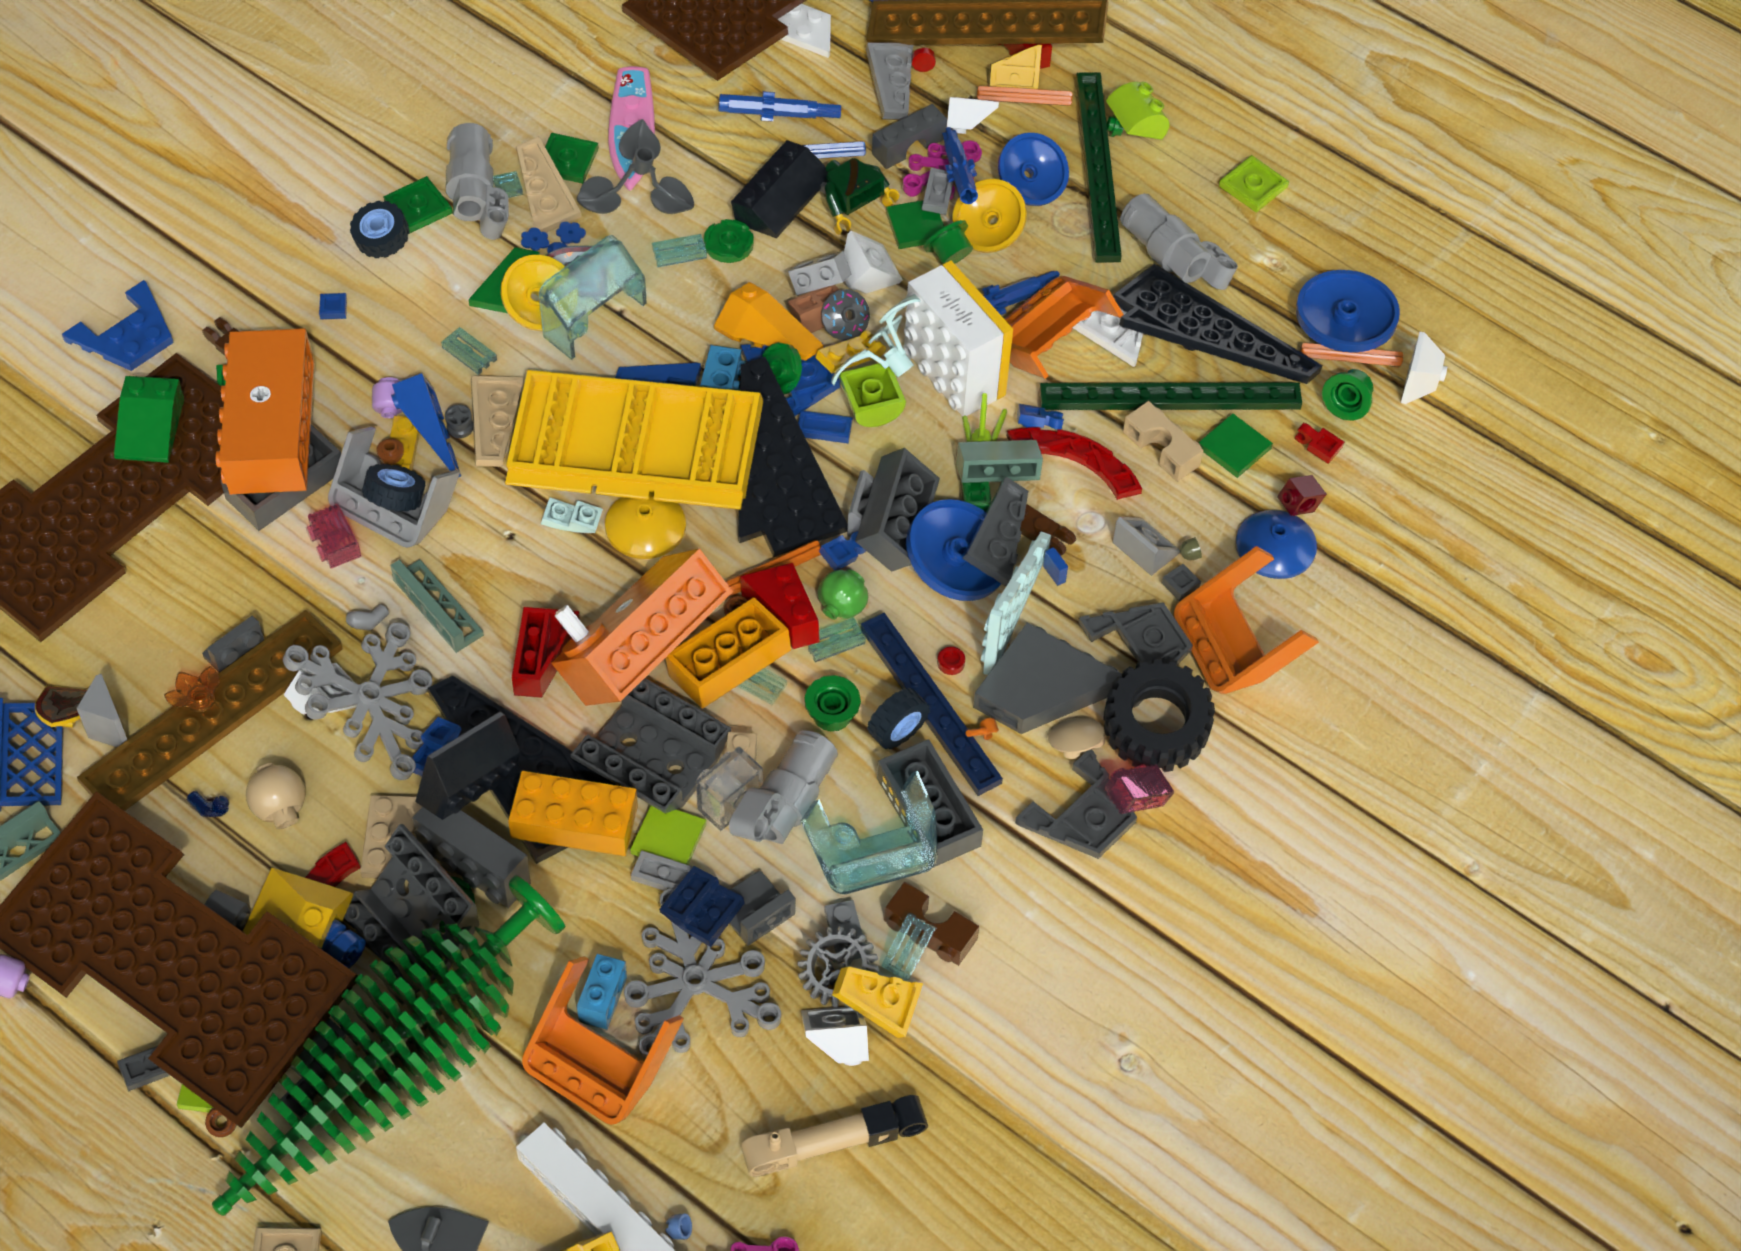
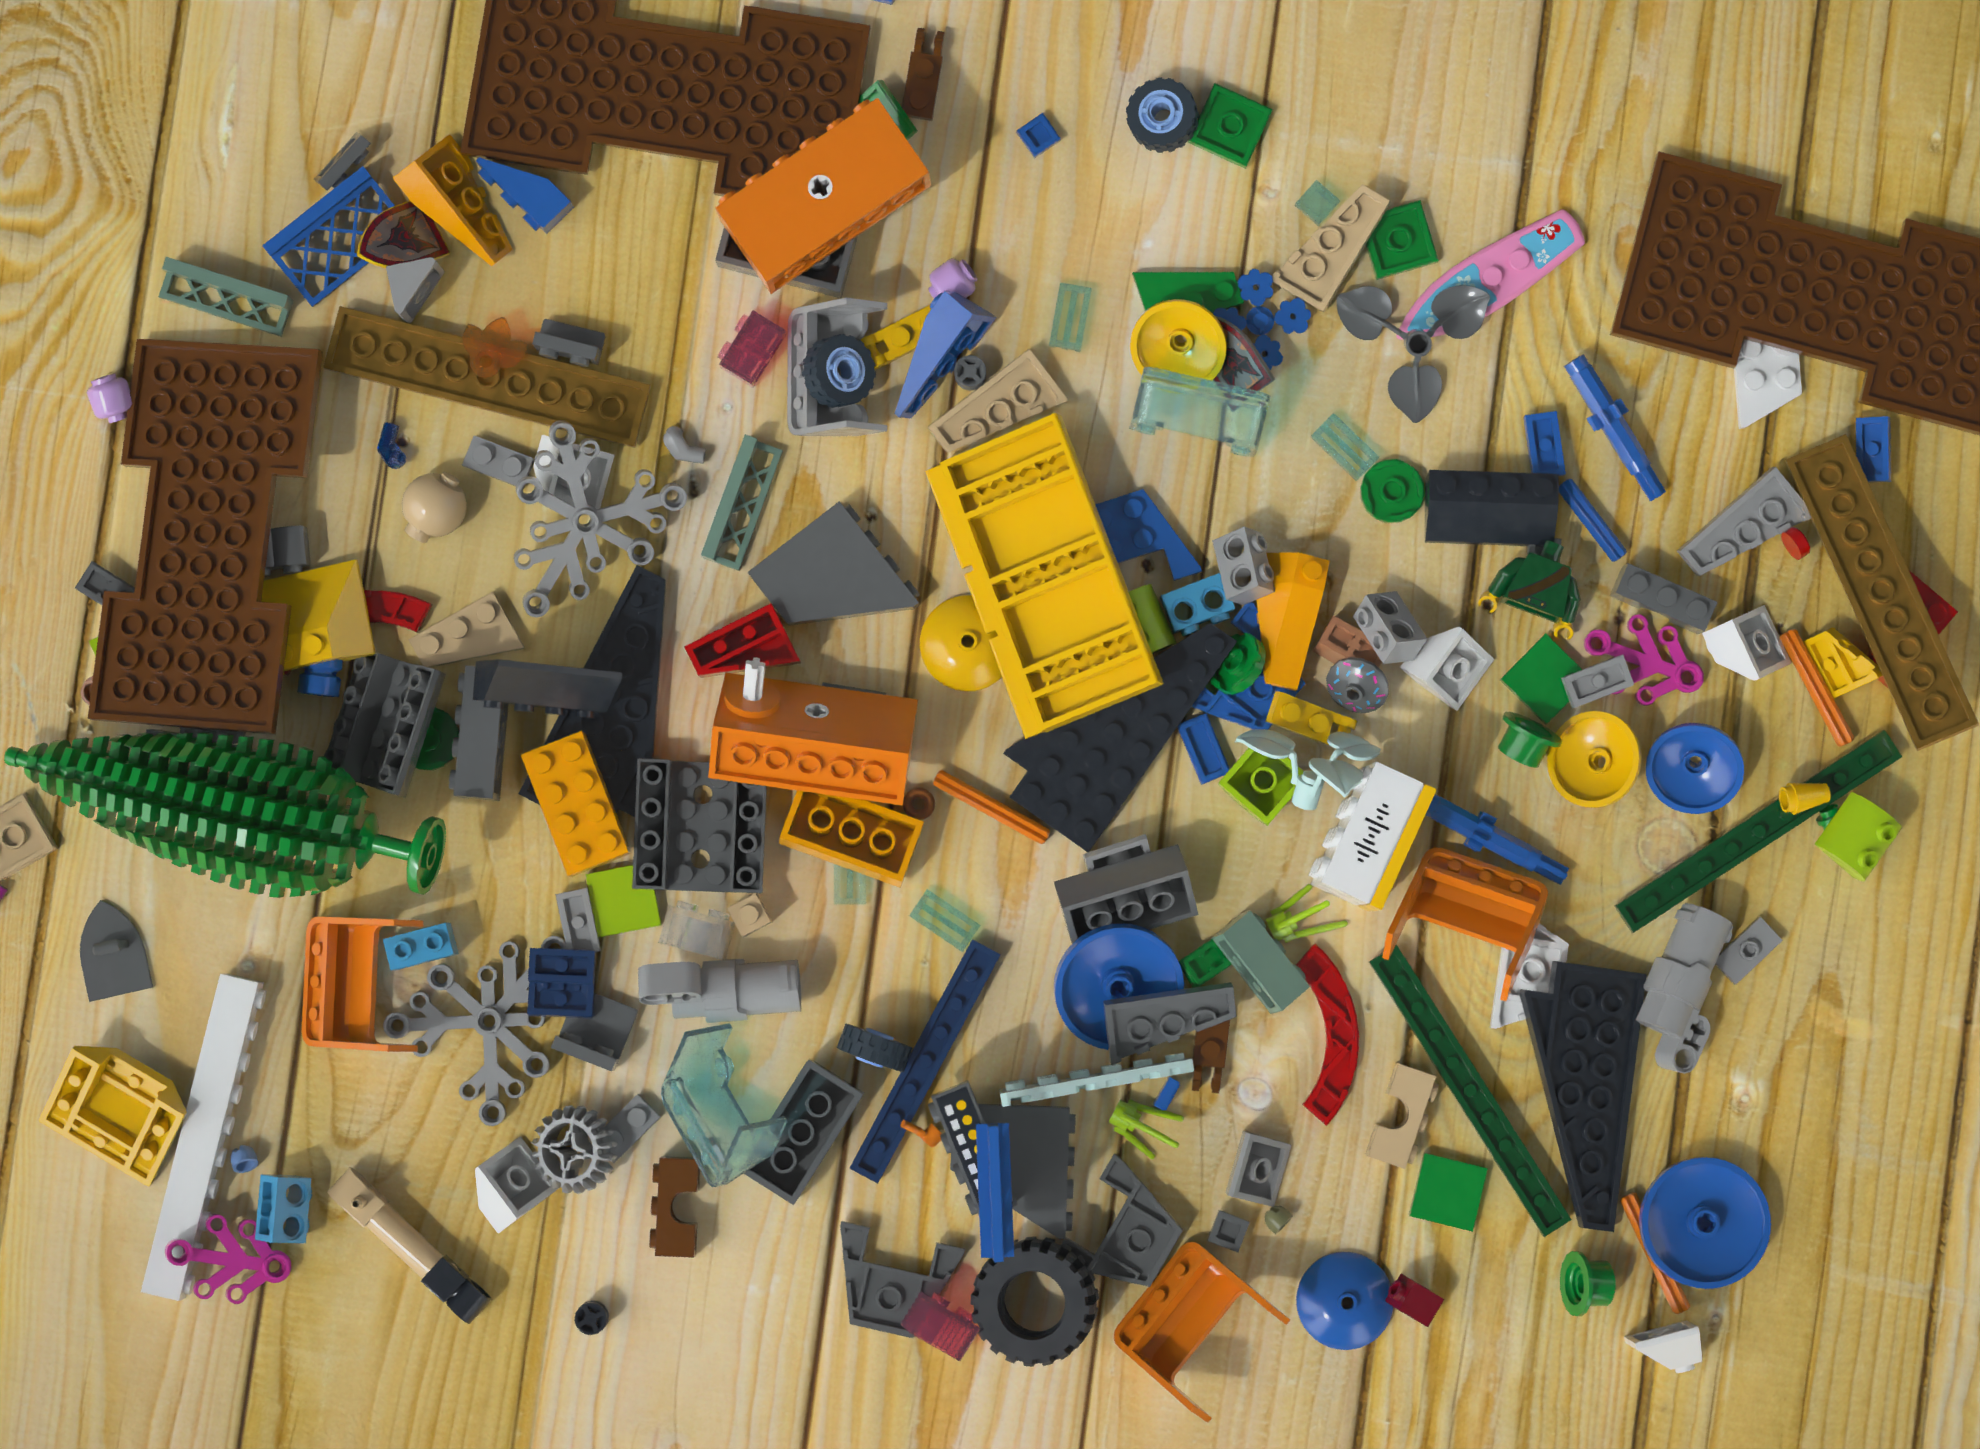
camera: 60 degrees right, 30 degrees up
(46, 664) = (446, 192): none -> light orange wedge
(107, 611) = (532, 193): none -> blue slope
(148, 418) = (761, 67): green slope -> none
(279, 741) = (497, 461): none -> light grey plate
(390, 456) = (881, 345): dark orange plate -> none
(435, 737) = (578, 617): blue slope -> none
(471, 180) = (1288, 167): light grey piece -> none
(533, 569) = (832, 573): none -> dark grey slope
(567, 517) = (928, 565): light aqua slope -> none
(716, 330) = (1238, 567): none -> light grey brick
(740, 1212) = (276, 1208): none -> dark azure brick
(757, 146) = (1544, 443): none -> blue plate
(785, 597) = (944, 851): red wedge -> none
(832, 702) = (858, 969): green piece -> none
(841, 552) = (1050, 864): blue plate -> none
(842, 594) = (998, 898): bright green plant -> none
(879, 998) = (562, 1209): yellow wing -> none
(920, 924) = (654, 1202): clear light blue tile -> none
(951, 660) = (991, 1051): red tile -> none
(959, 168) = (1634, 692): blue piece -> none
(982, 1027) = (586, 1320): none -> black wheel
(1019, 680) = (959, 1114): none -> brick
(1037, 417) = (1349, 965): blue plate -> none
(1050, 658) = (995, 1191): none -> blue fence
(1057, 599) = (1126, 1118): none -> lime plant
(1077, 736) = (961, 1230): tan dish -> none
(1091, 125) = (1803, 796): none -> yellow cone
(1174, 203) = (1747, 950): none -> light grey plate
(1253, 183) = (1846, 1017): lime tile -> none
(1321, 444) = (1504, 1286): red plate -> none

